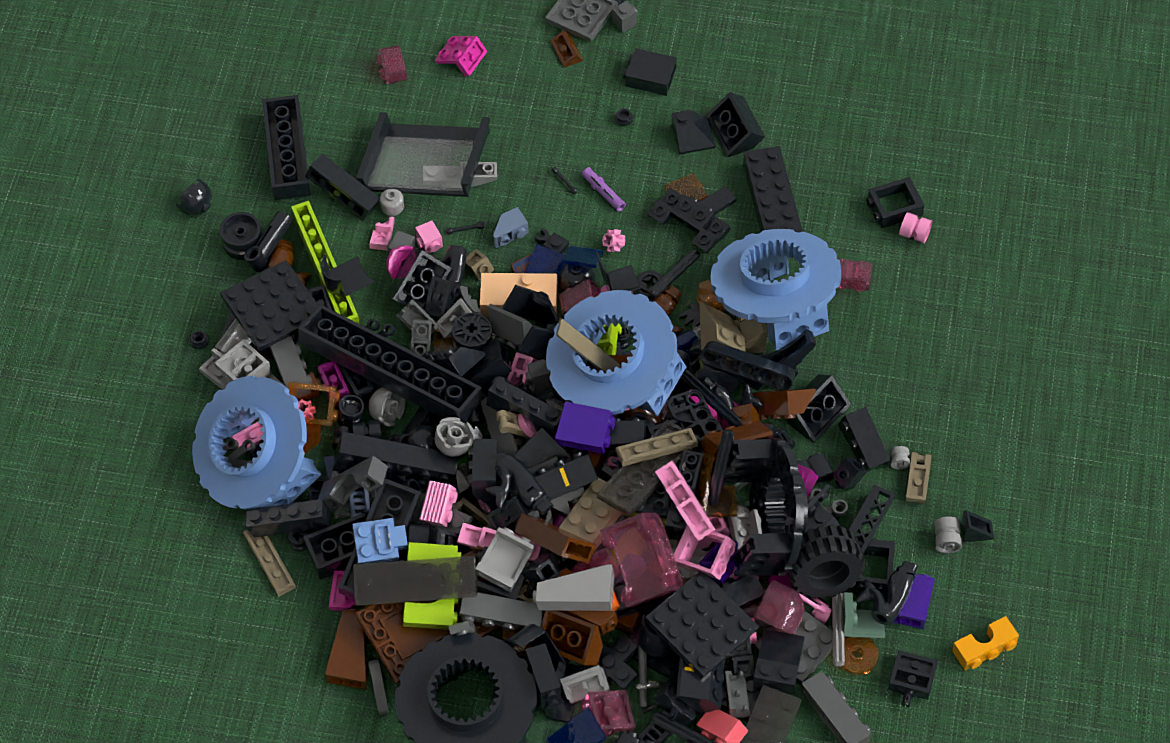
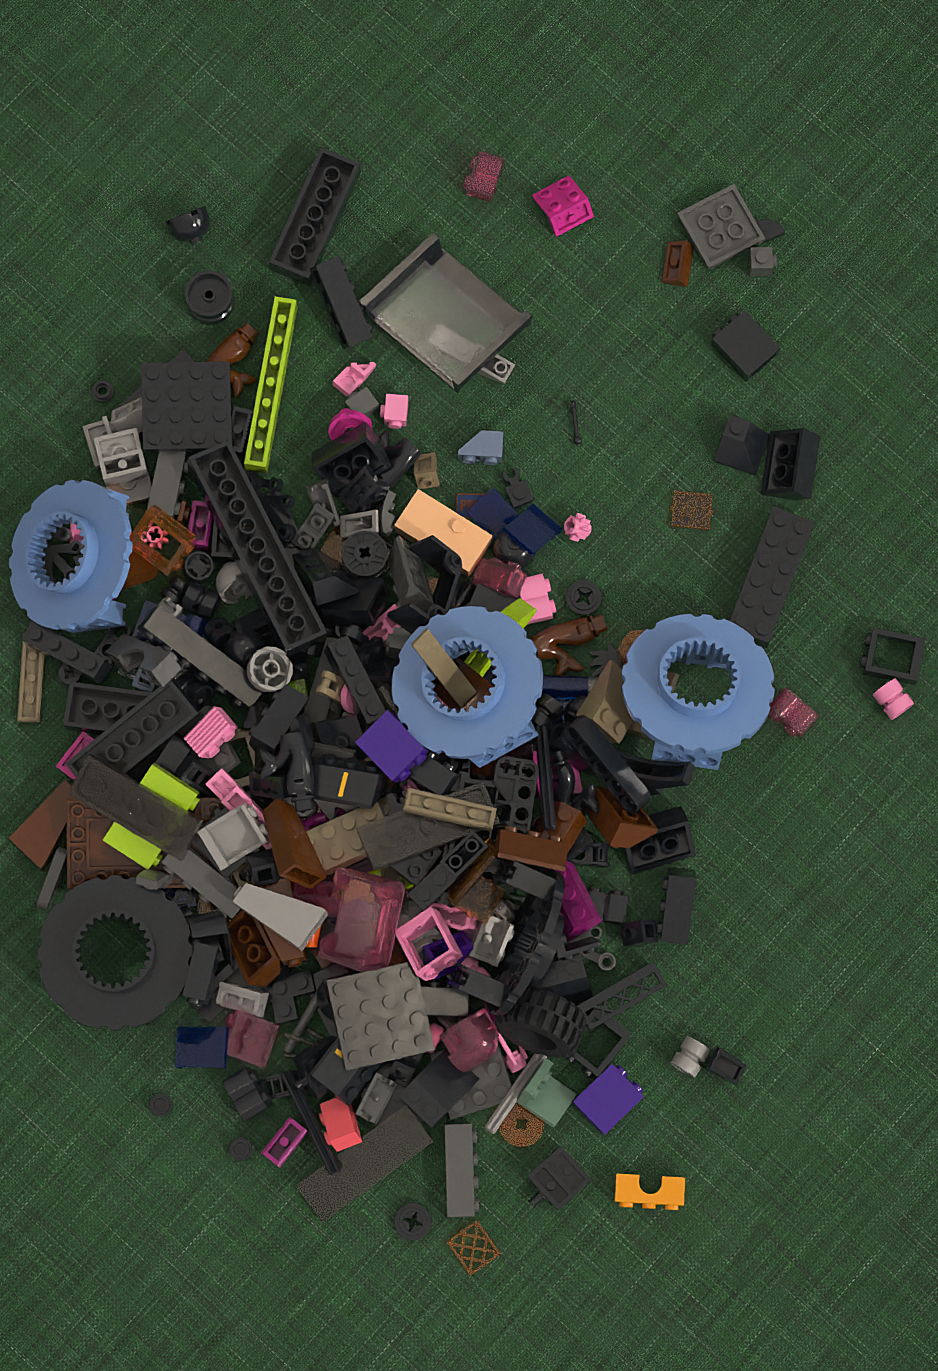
camera: 30 degrees right, 20 degrees up
(259, 254) = (213, 332): black piece -> none
(345, 278) = (277, 414): black piece -> none
(379, 541) = (126, 743): medium blue piece -> none
(392, 202) = (382, 347): light grey head -> none
(480, 225) = (458, 423): black hinge -> none
(617, 203) = (607, 459): medium lavender pin -> none
(619, 279) = (547, 584): black piece -> none
(624, 117) = (683, 384): black plate -> none
(674, 273) = (613, 602): black axle -> none
(685, 500) = (437, 886): bright pink slope -> none
(692, 215) = (676, 547): black bracket -> none
(719, 200) = (712, 543): black tile -> none
(720, 467) = (492, 874): black axle -> none
(897, 592) = (596, 1090): black piece -> none
(900, 457) = (701, 945): light grey wheel -> none
(918, 478) = (705, 977): dark tan plate -> none

